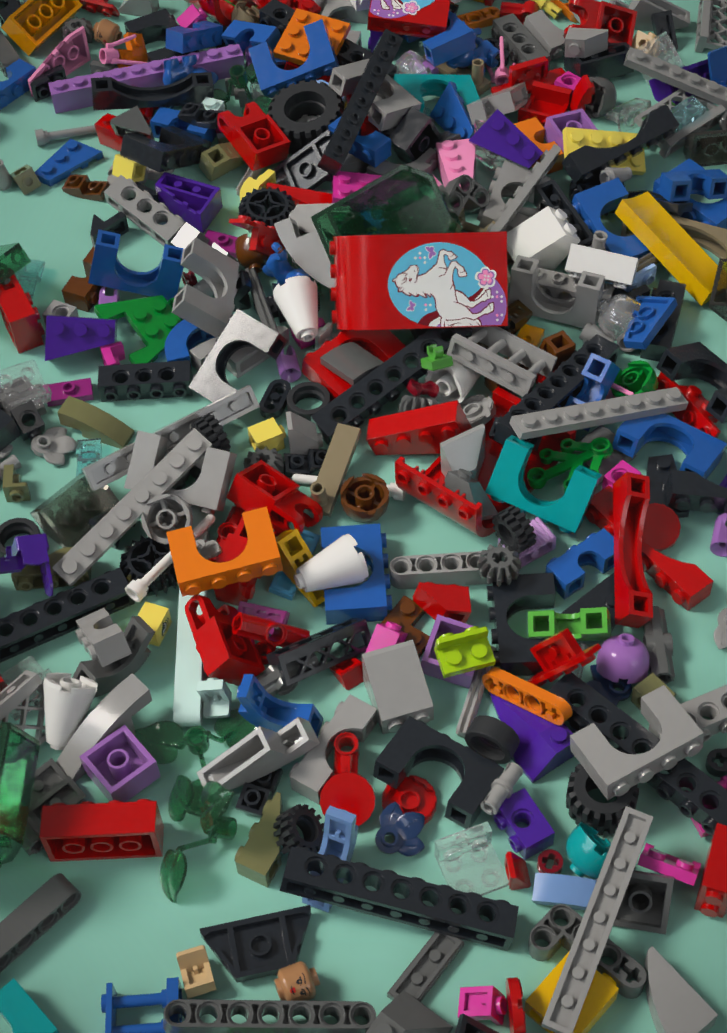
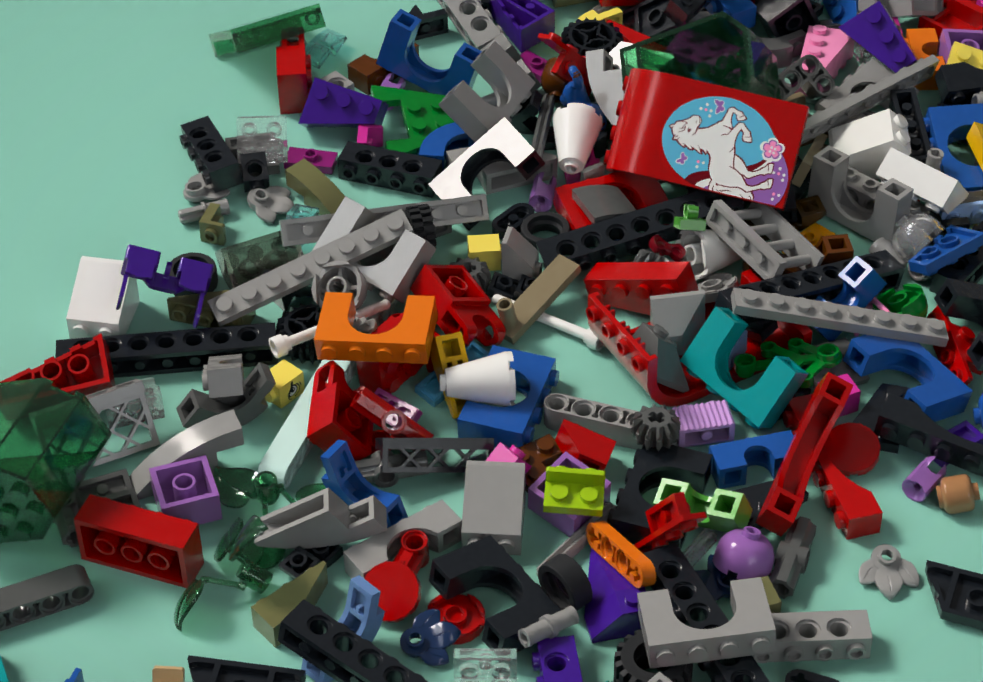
camera: 20 degrees right, 10 degrees down
(65, 706) = (157, 421): white cone -> none
(189, 278) = (483, 88): dark red bush -> none
(215, 697) = (308, 462): light aqua bracket -> none
(308, 824) = (330, 586): black tyre -> none
(348, 673) = (453, 486): red slope -> none
(364, 497) = (552, 331): reddish brown cylinder -> none
(514, 529) = (686, 397): black tyre -> none

